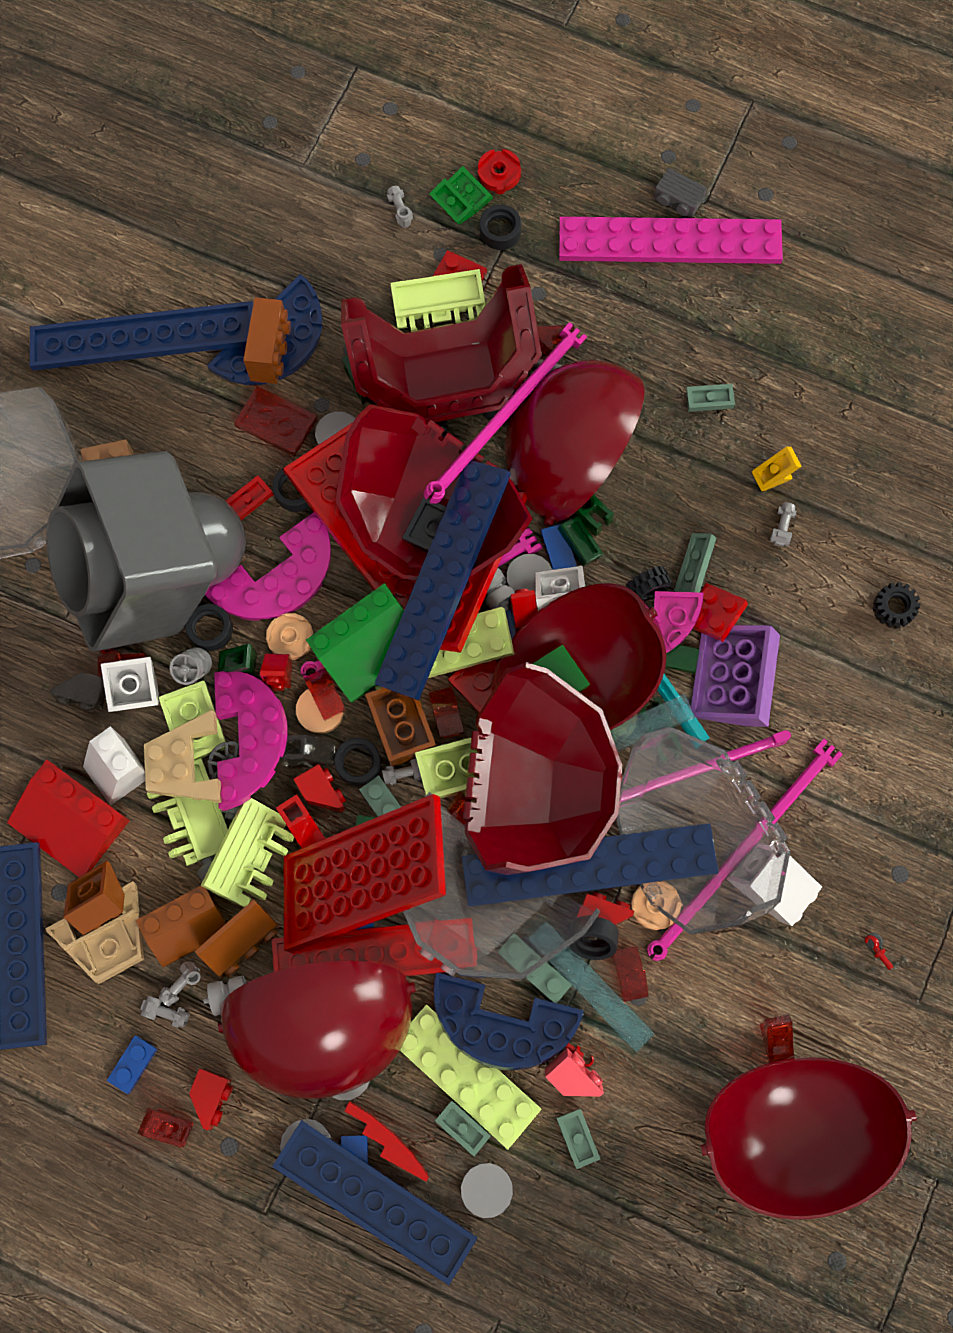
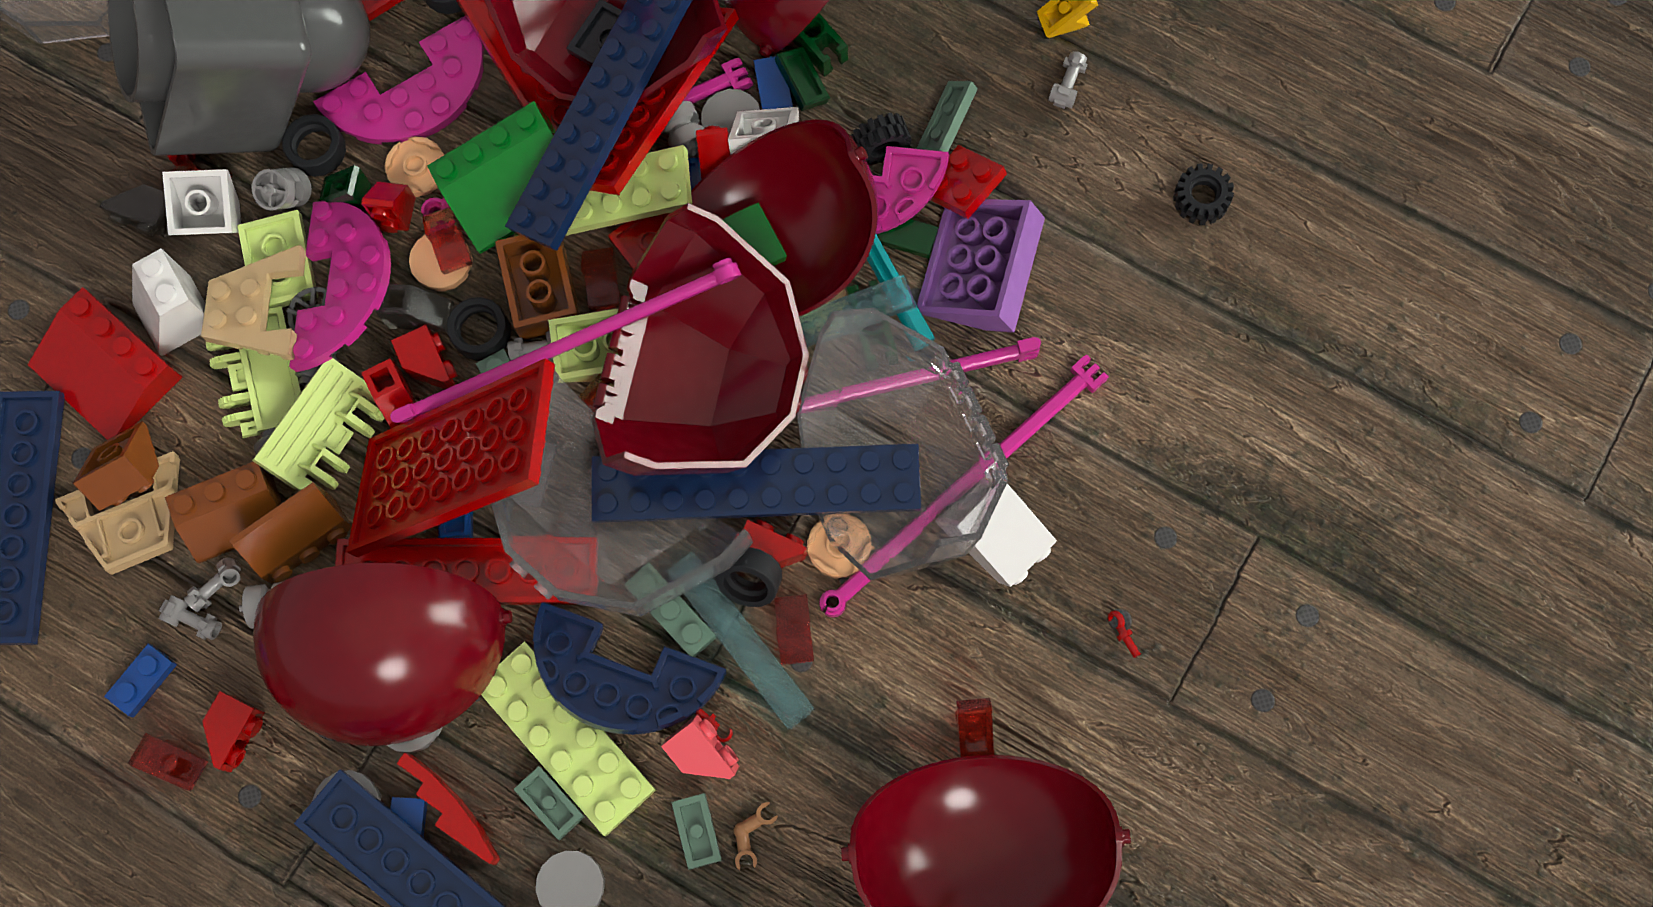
camera: 10 degrees right, 0 degrees up
(552, 709) = (724, 272): none -> dark pink hinge
(612, 1133) = (742, 831): none -> medium nougat arm

